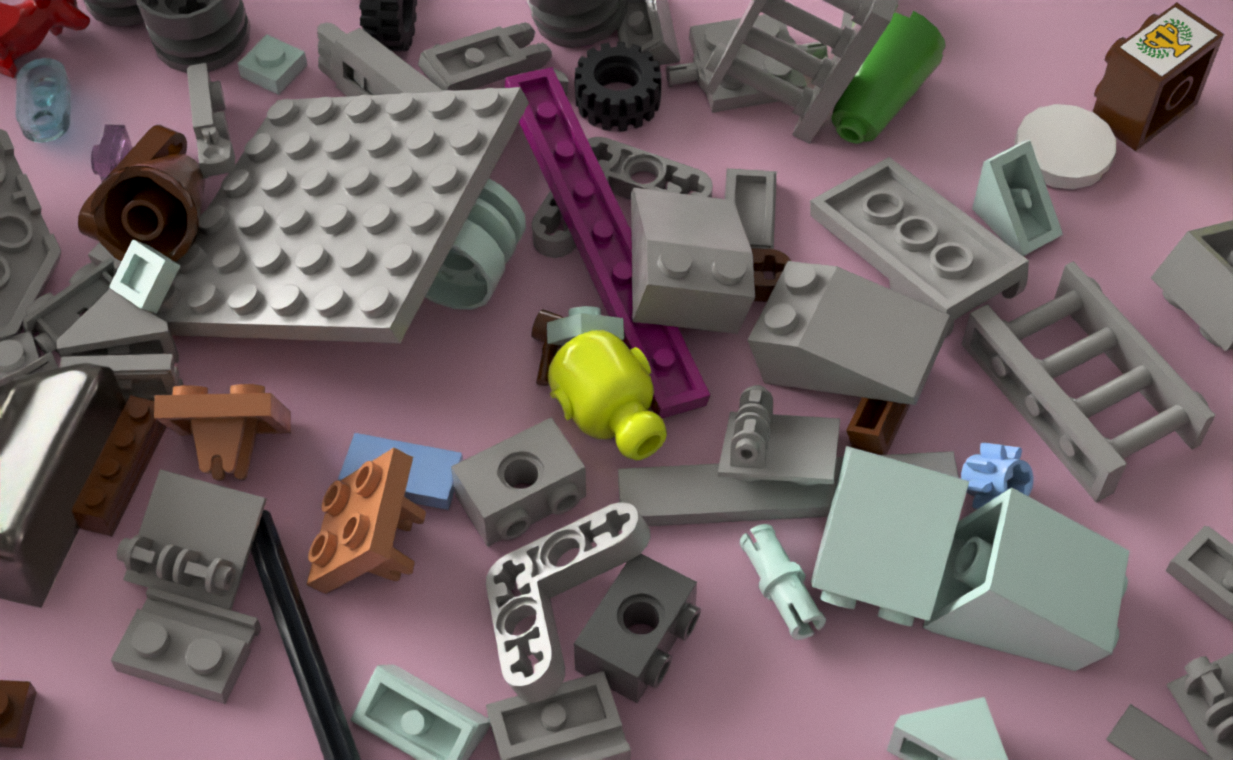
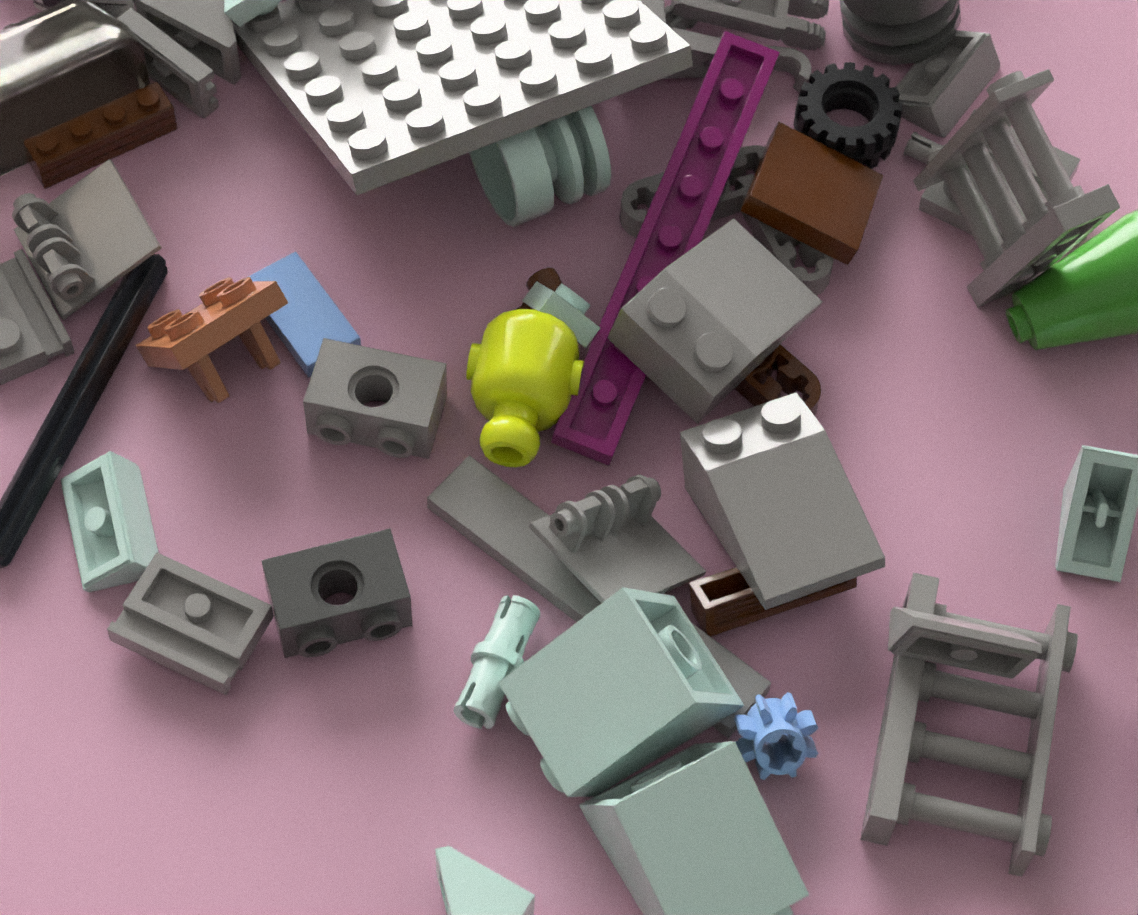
camera: 40 degrees right, 5 degrees up
(223, 423) = (191, 162): nougat plate -> none
(541, 579) = (290, 484): light grey beam -> none
(653, 143) = (812, 193): none -> reddish brown tile
(755, 201) = (844, 326): light grey tile -> none
(920, 240) = (953, 474): light grey hinge -> none
(1046, 328) = (960, 643): none -> light grey slope

